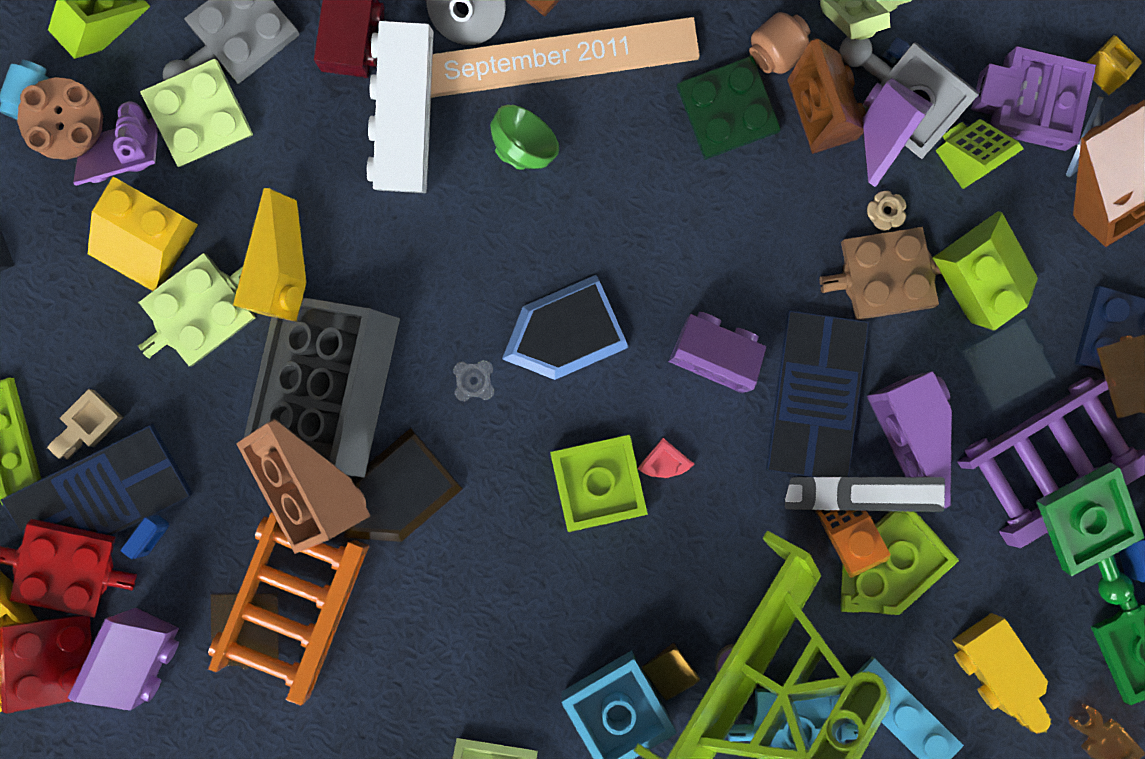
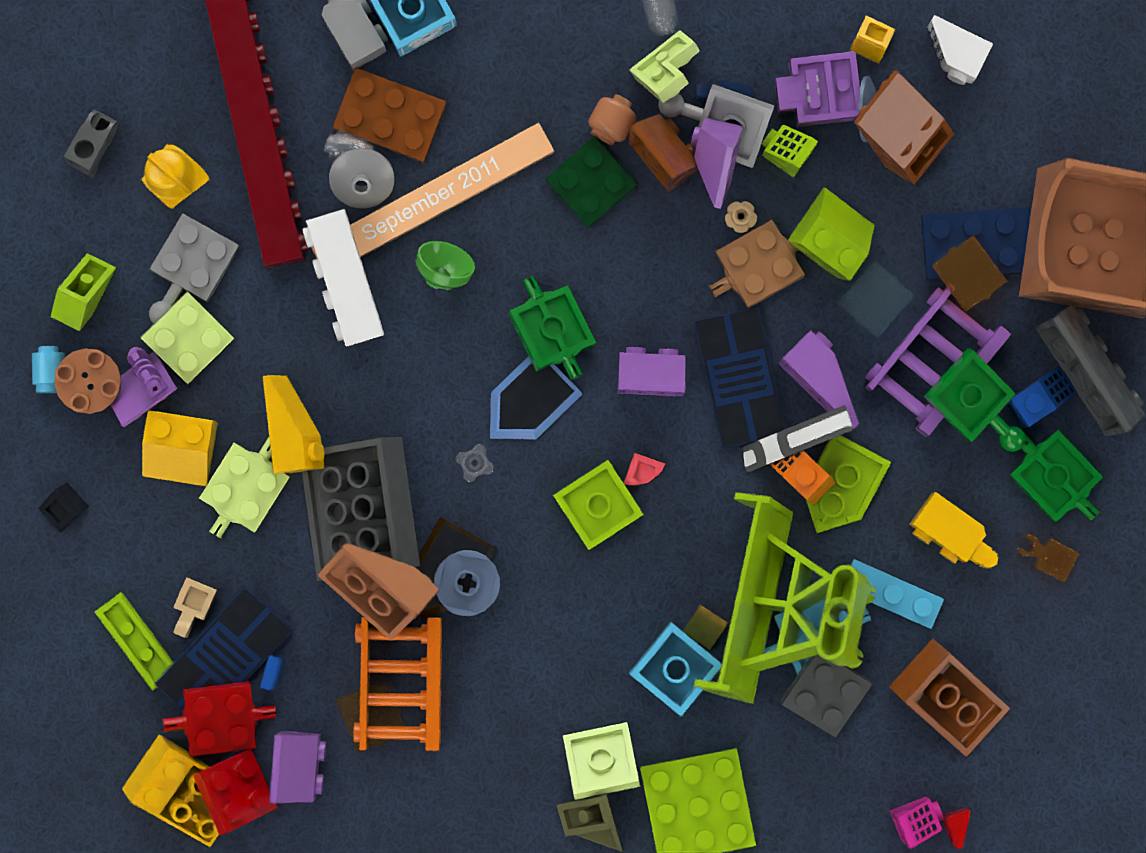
camera: 20 degrees left, 0 degrees up
(387, 522) = (452, 594): none -> sand blue plate
(621, 257) = (552, 328): none -> green plate

